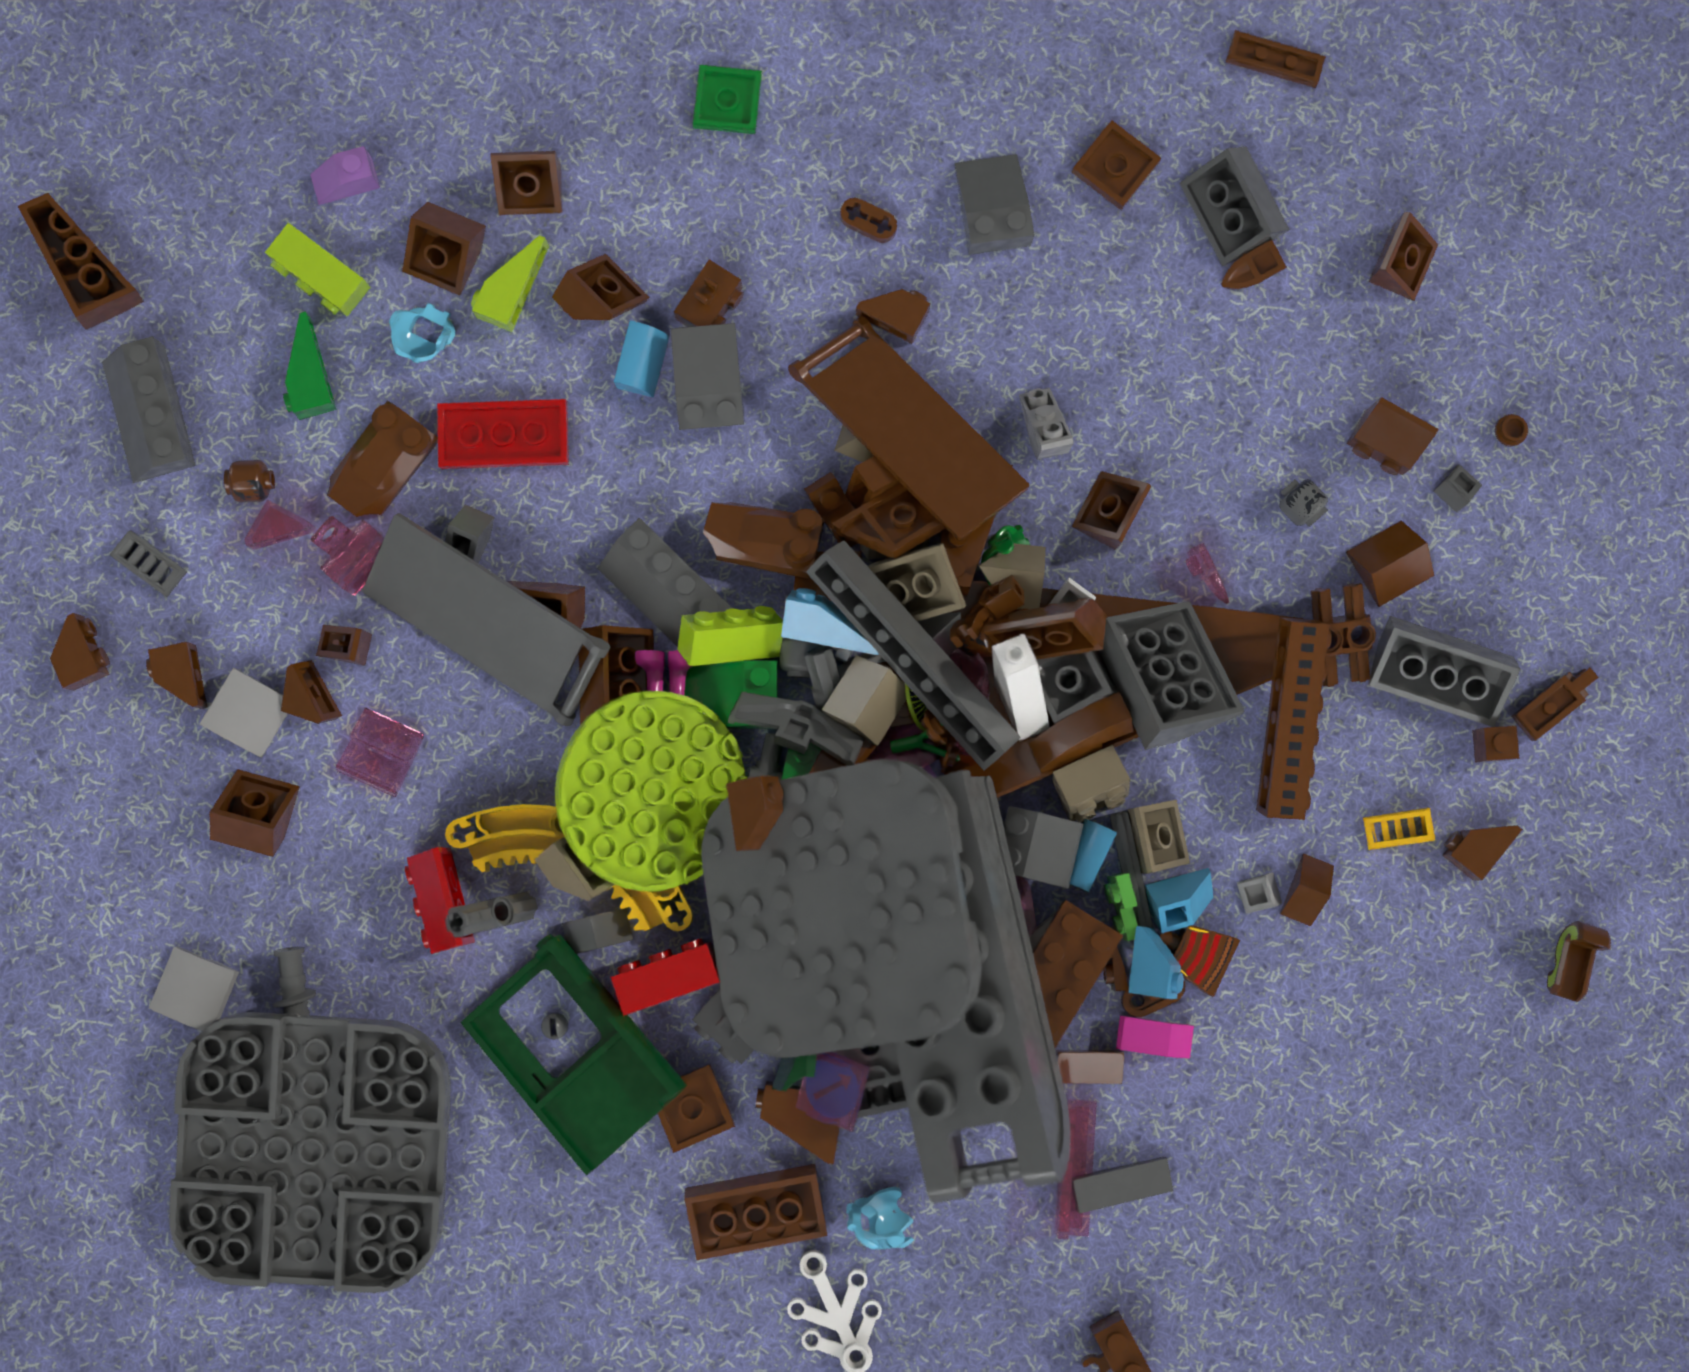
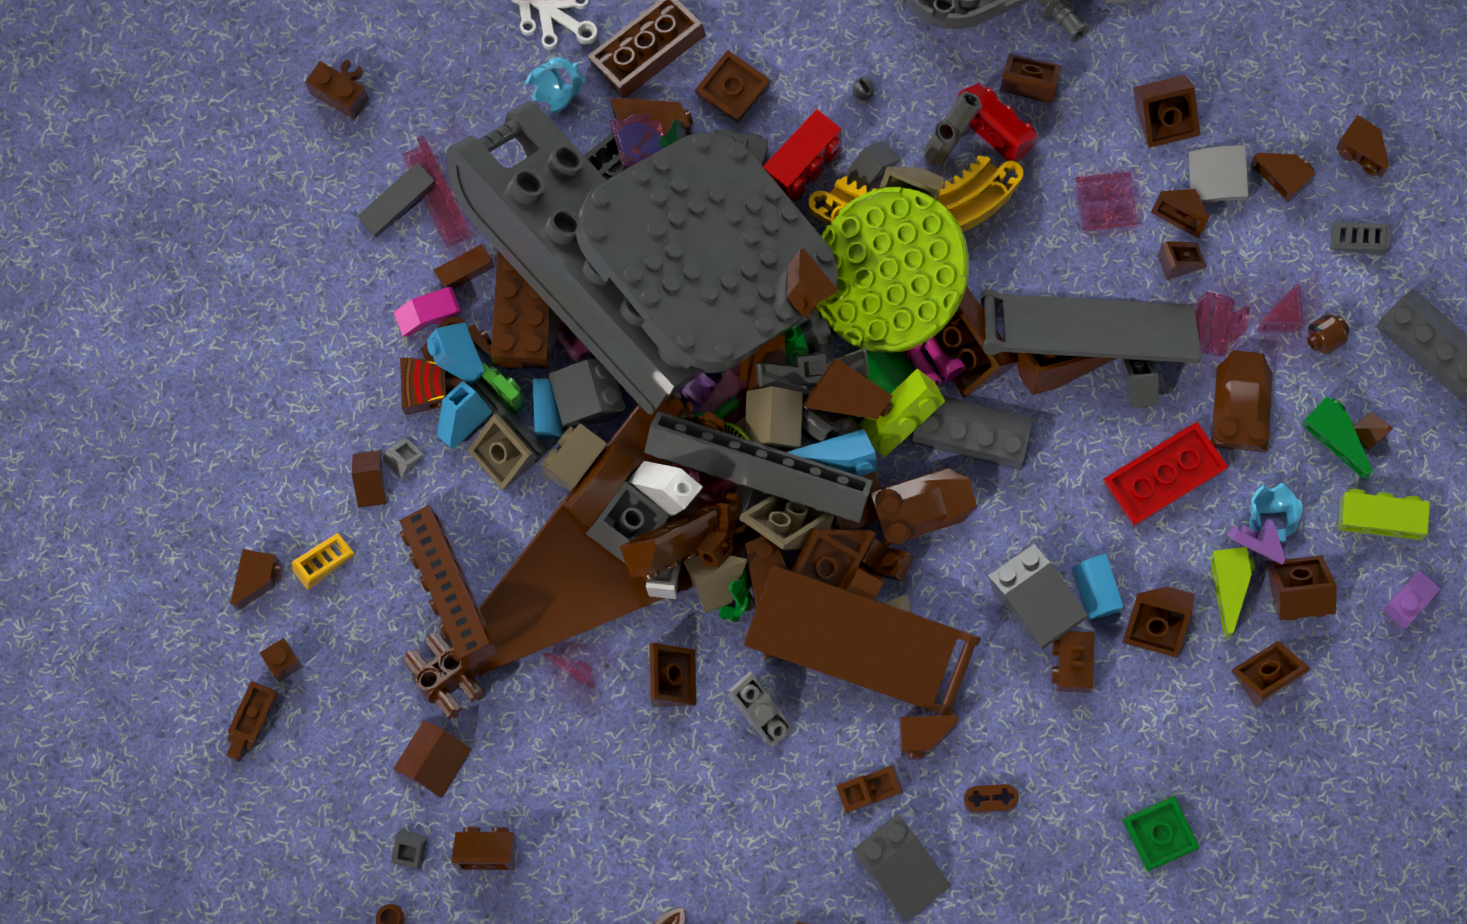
camera: 155 degrees right, 10 degrees down
(271, 362) = (1371, 430): none -> reddish brown slope
(370, 933) = (1030, 78): none -> reddish brown slope
(453, 306) = (1266, 543): none -> medium lavender slope
(606, 1090) = (802, 57): dark green piece -> none
(777, 679) = (848, 393): none -> reddish brown slope
(977, 294) = (869, 789): none -> reddish brown slope
(1168, 674) = (560, 566): dark grey slope -> none
(1303, 502) = (525, 764): dark grey head -> none
(1443, 671) = (350, 692): dark grey slope -> none
(1575, 959) = (141, 533): reddish brown animal -> none

